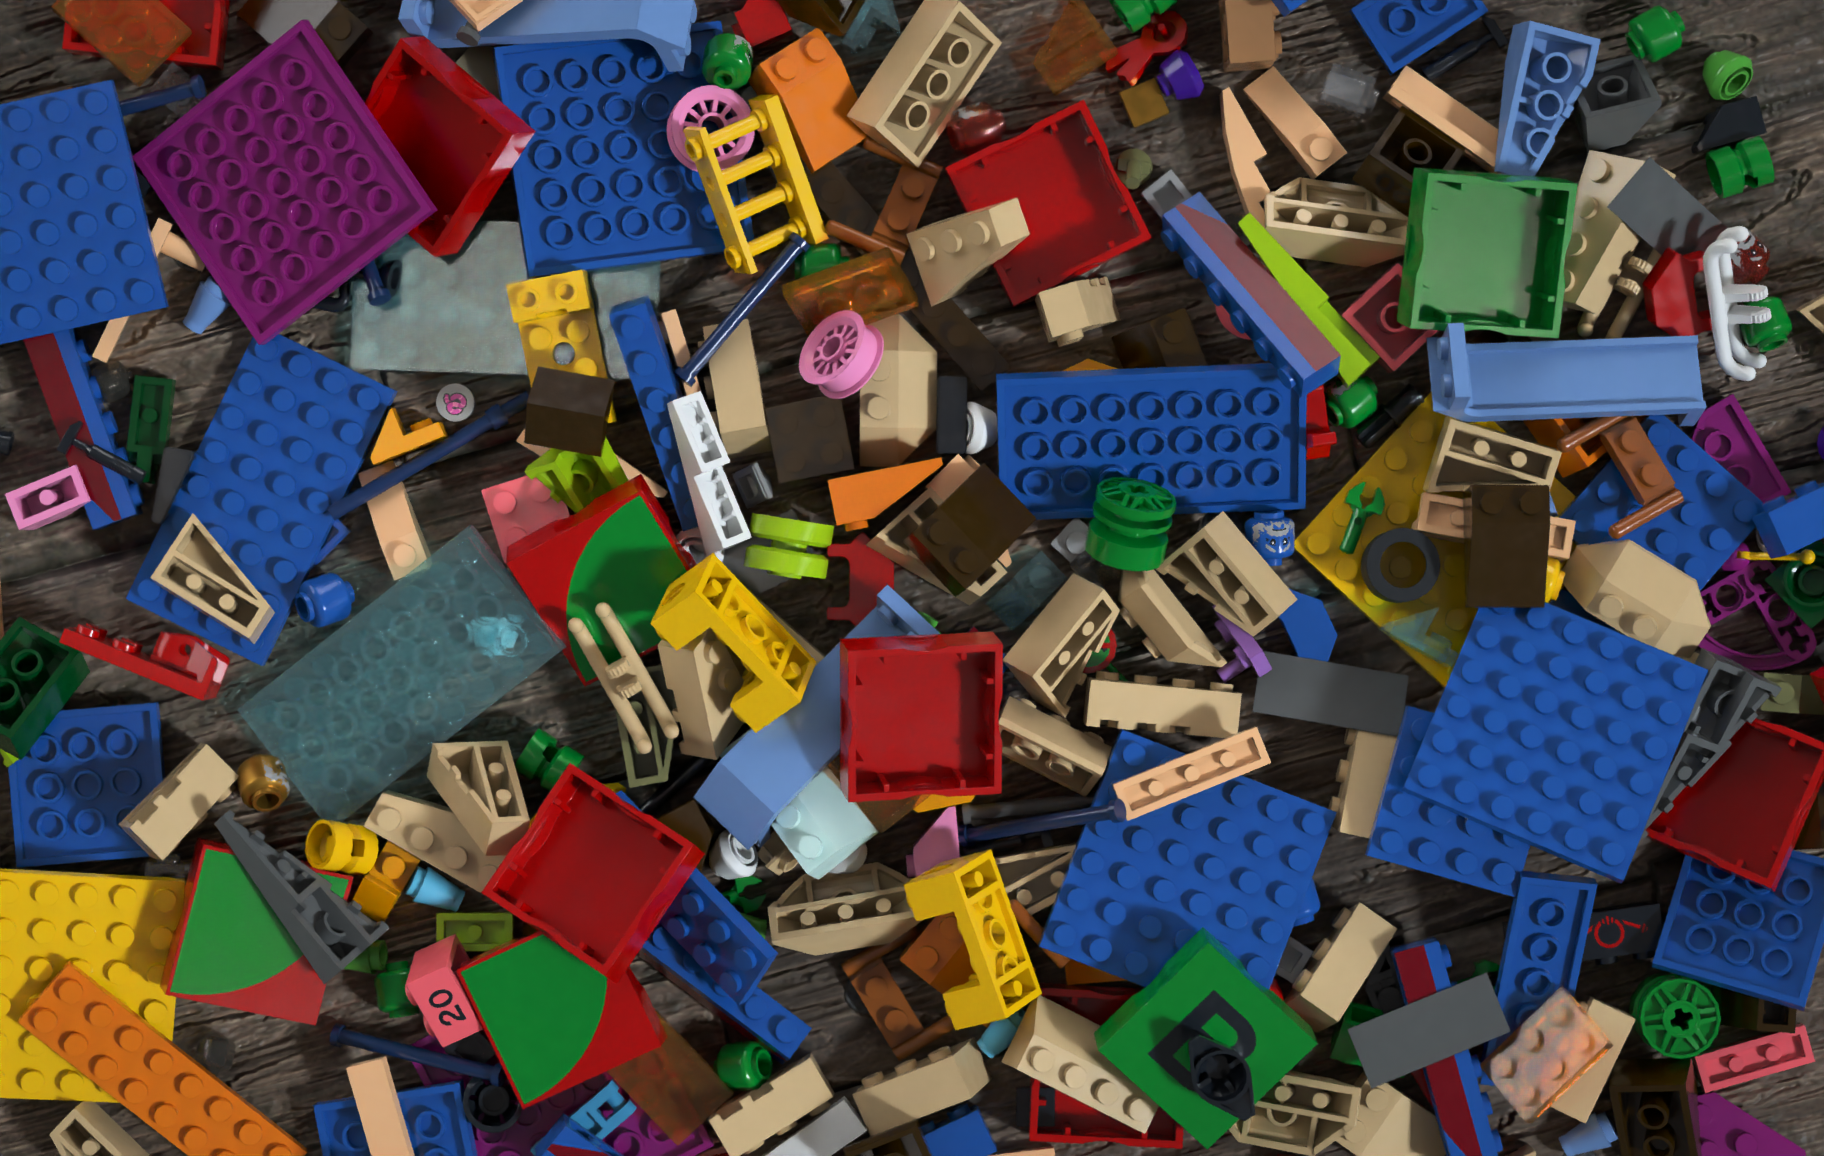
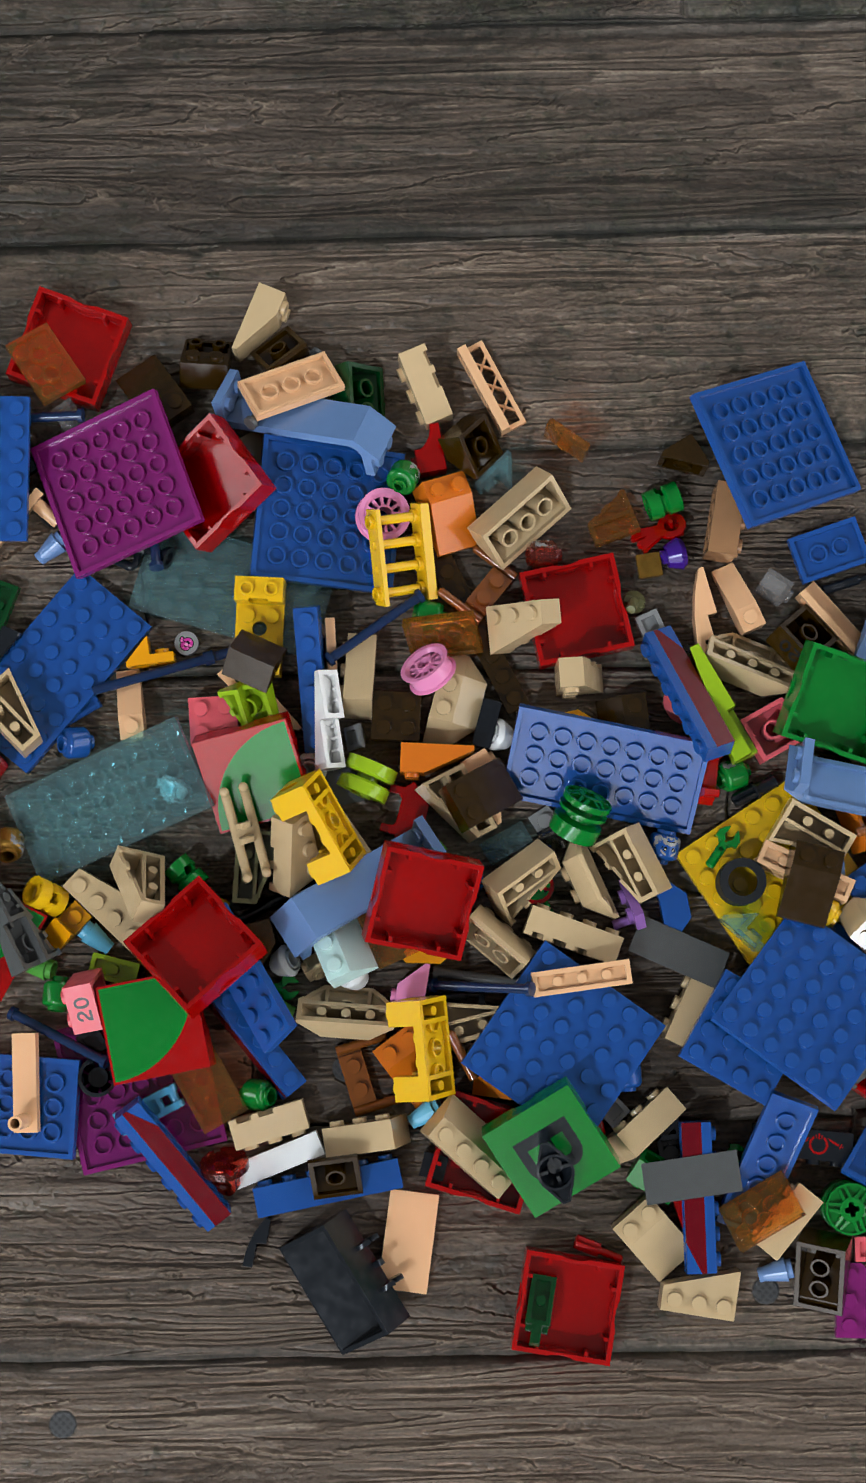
camera: 15 degrees right, 5 degrees down
(1301, 1114) = (598, 1211): tan wedge -> none

